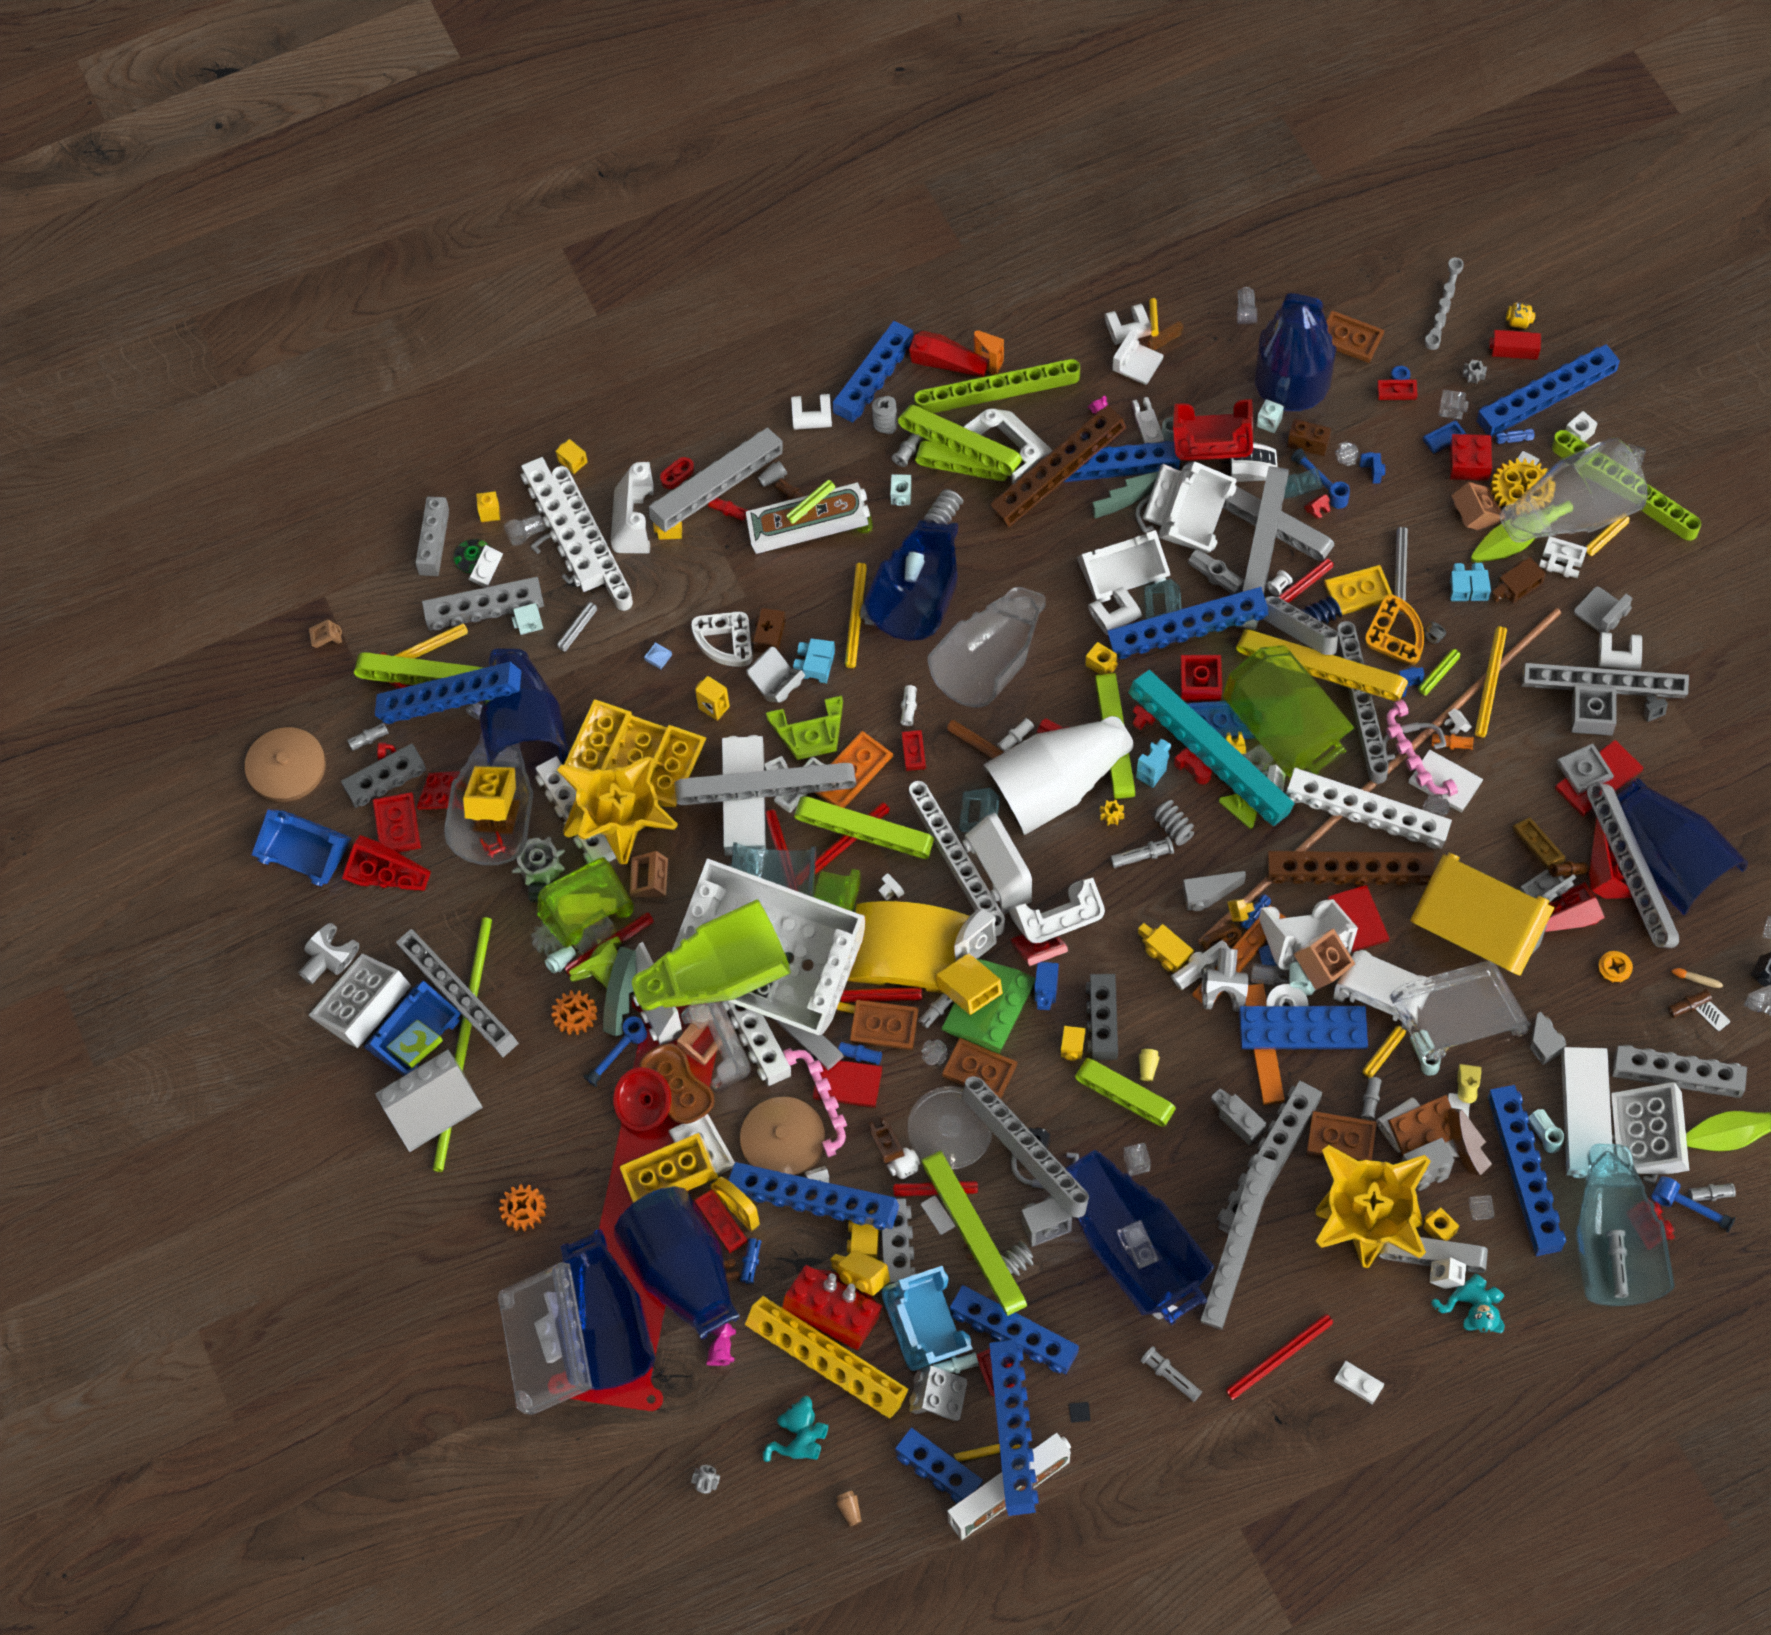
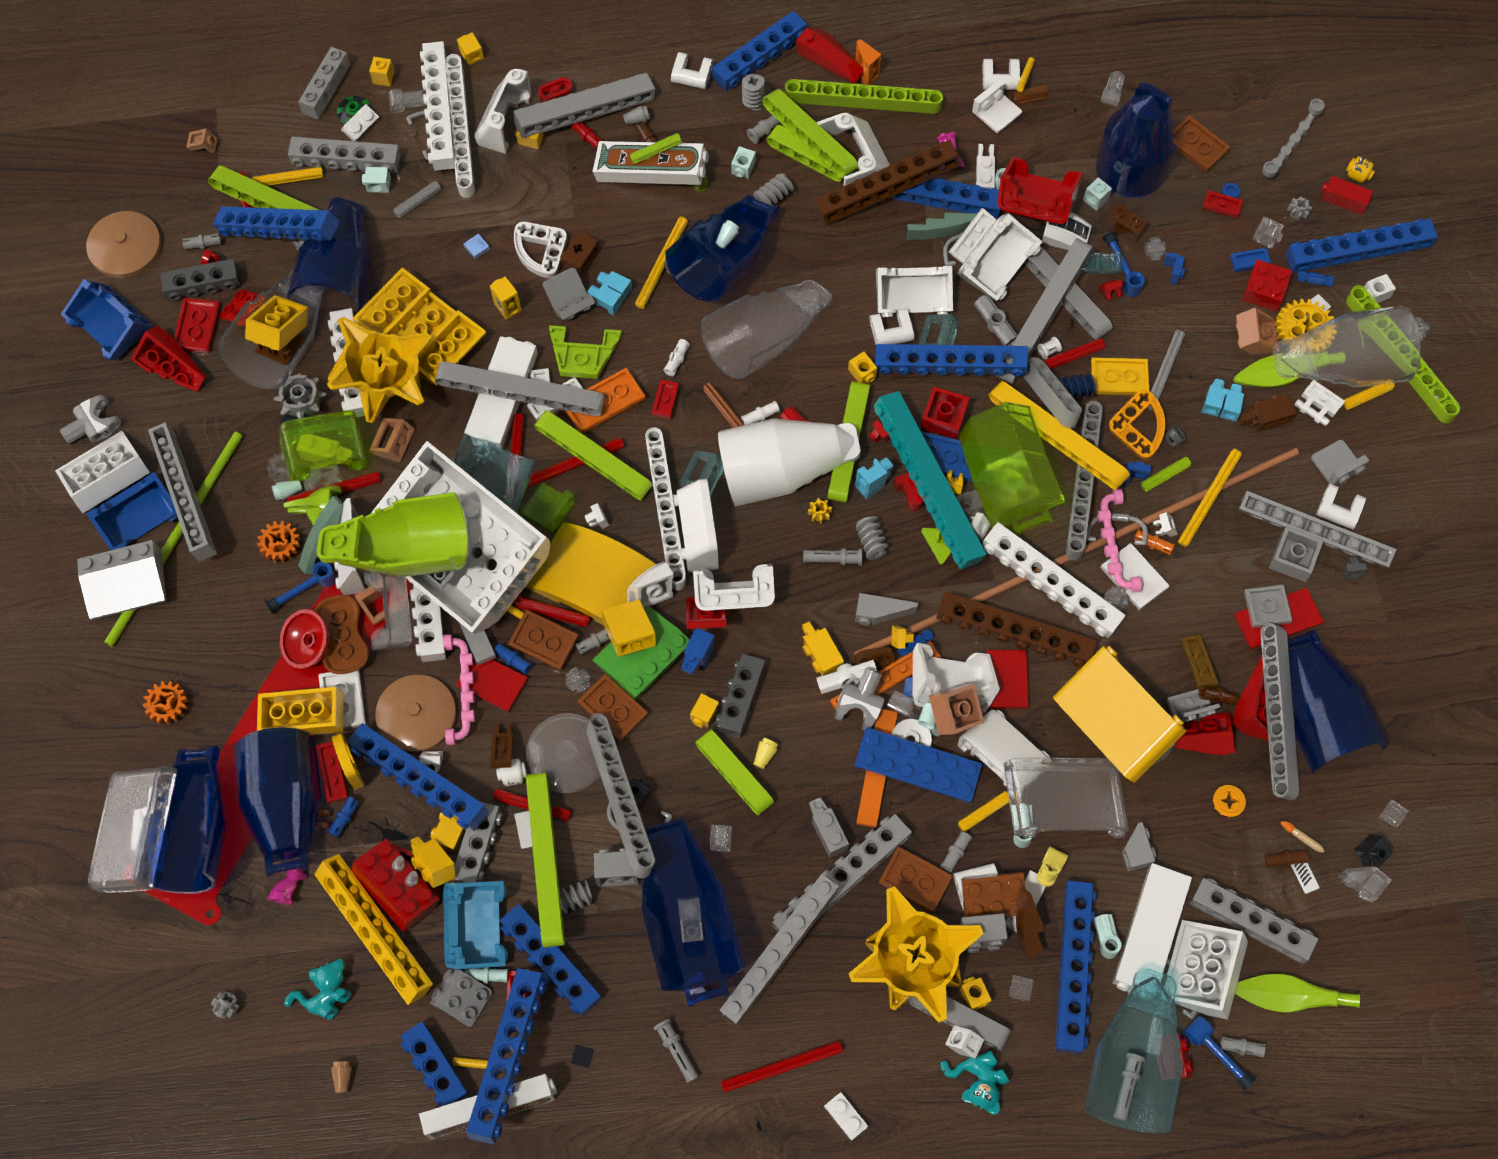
camera: 15 degrees right, 5 degrees up
(414, 1044) = (130, 525): tile -> none
(487, 848) = (271, 369): red piece -> none

